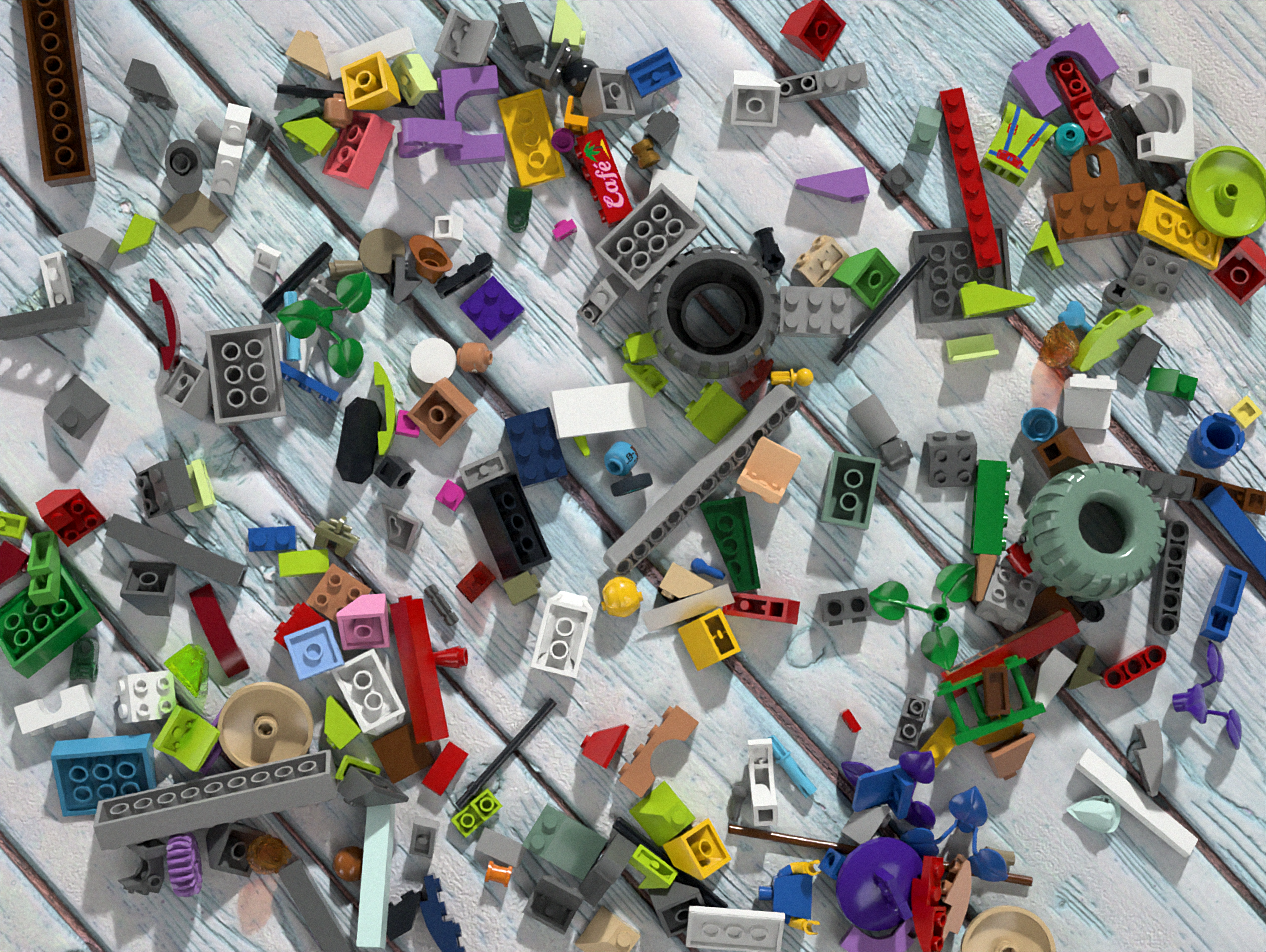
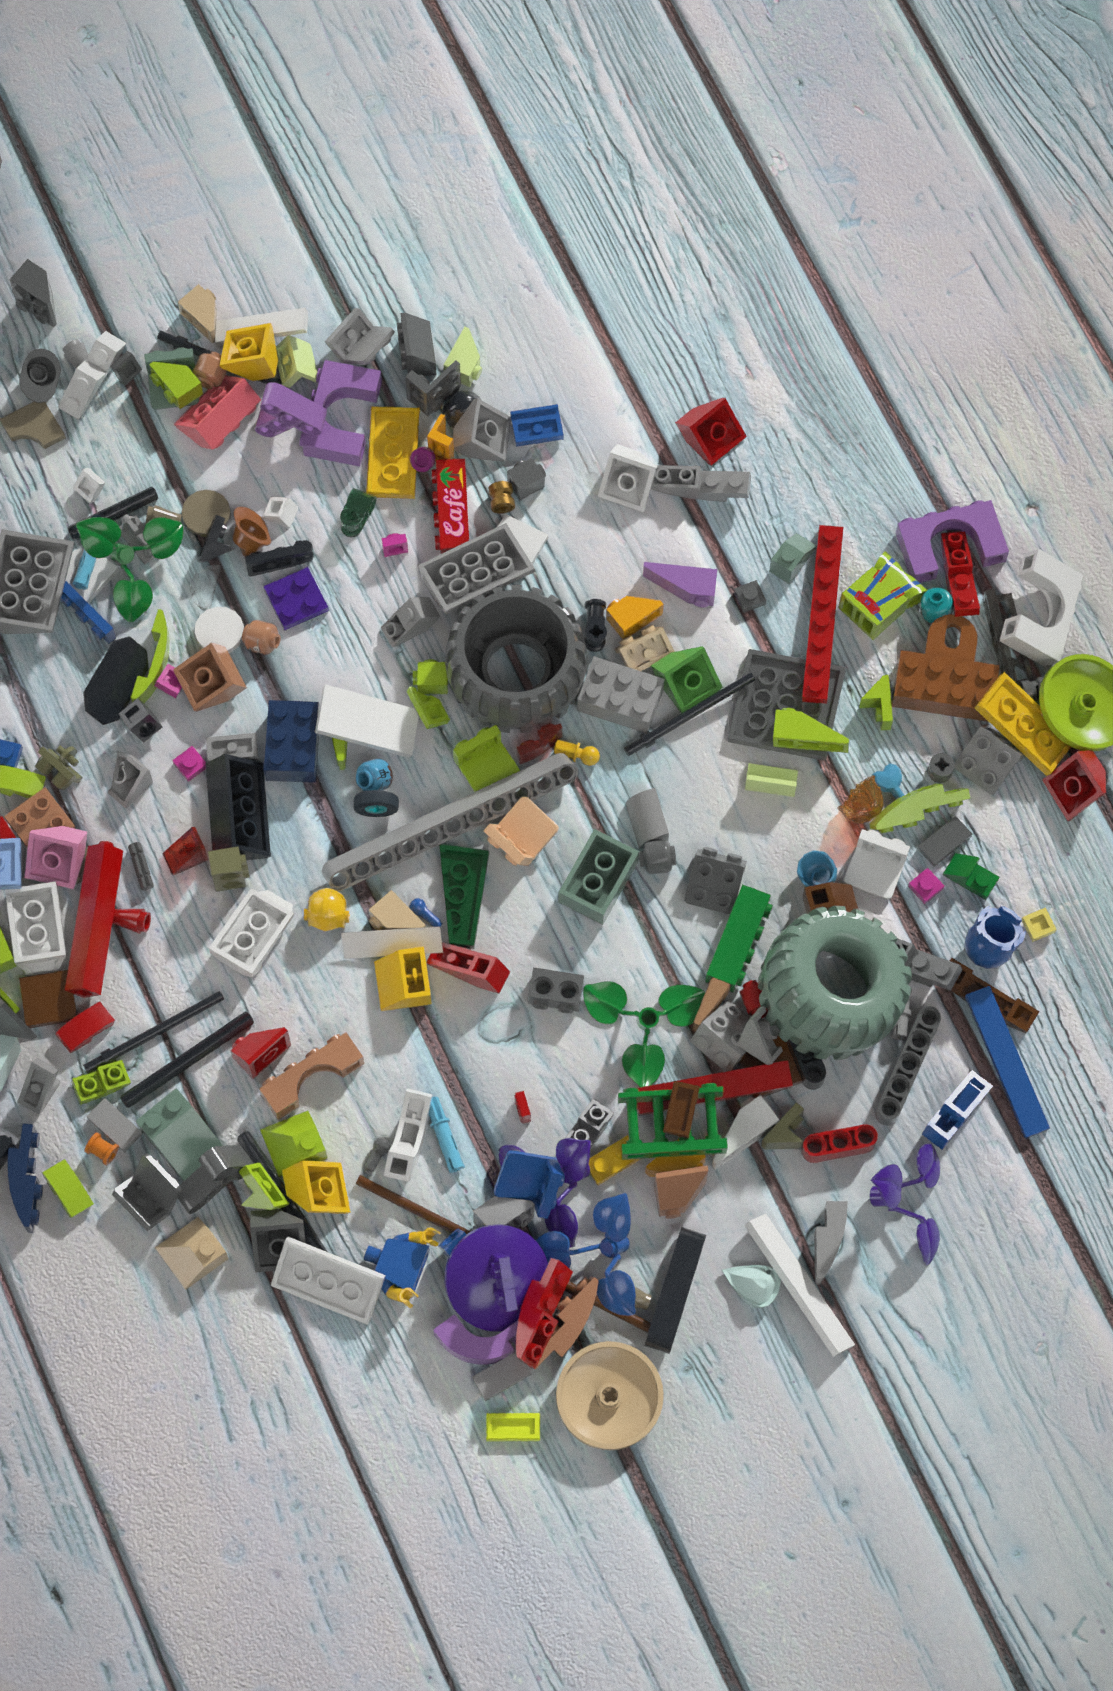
camera: 20 degrees right, 15 degrees down
(481, 918) = (67, 1188): none -> lime slope
(543, 769) = (187, 1059): none -> black axle
(798, 231) = (632, 614): none -> light orange slope
(1034, 843) = (675, 1290): none -> black beam
(1038, 600) = (758, 1040): none -> light grey slope
(1135, 405) = (926, 886): none -> dark pink plate

